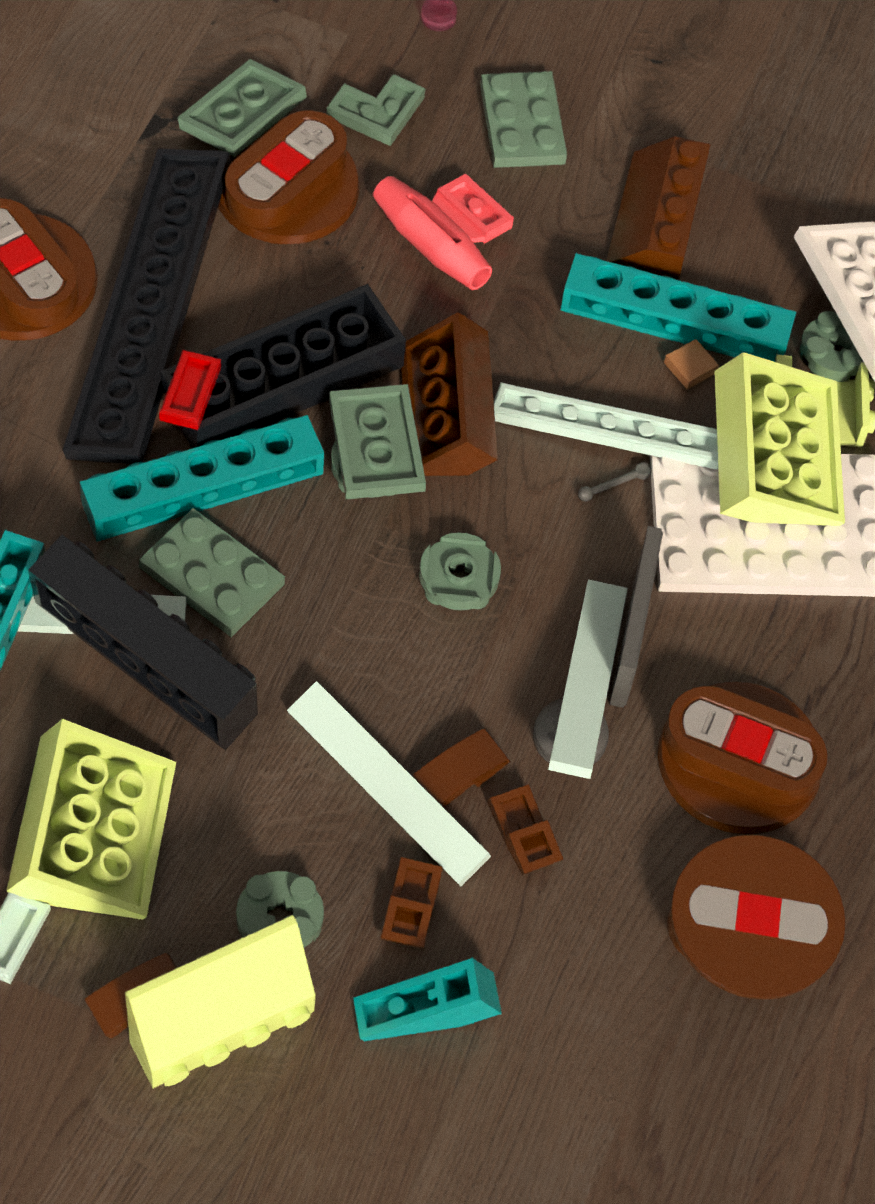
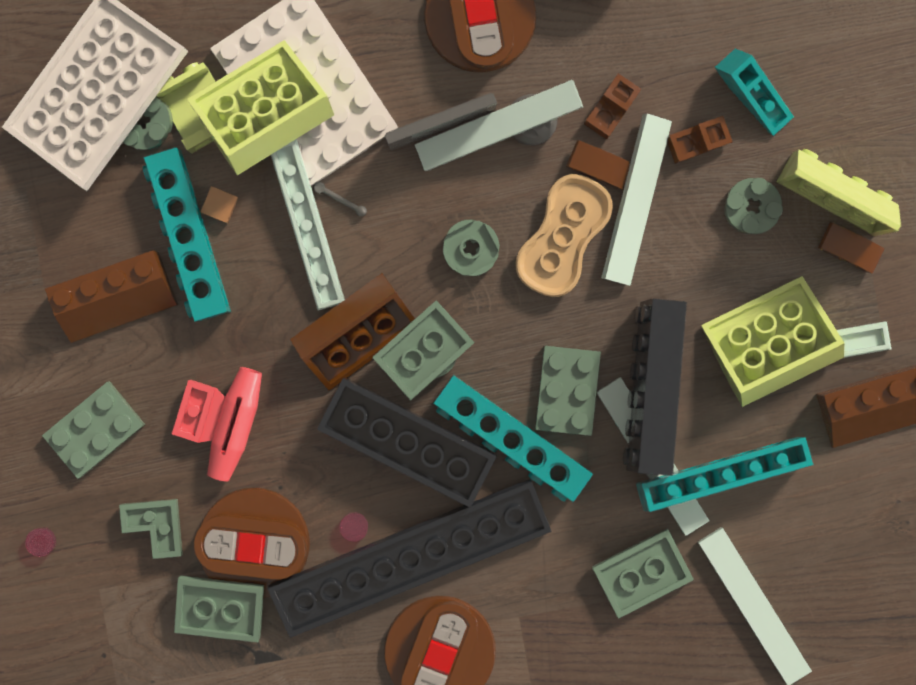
camera: 115 degrees left, 30 degrees up
(190, 389) = (473, 479): red tile -> none
(228, 277) = (354, 526): none -> clear pink tile
(415, 696) = (554, 254): none -> tan plate

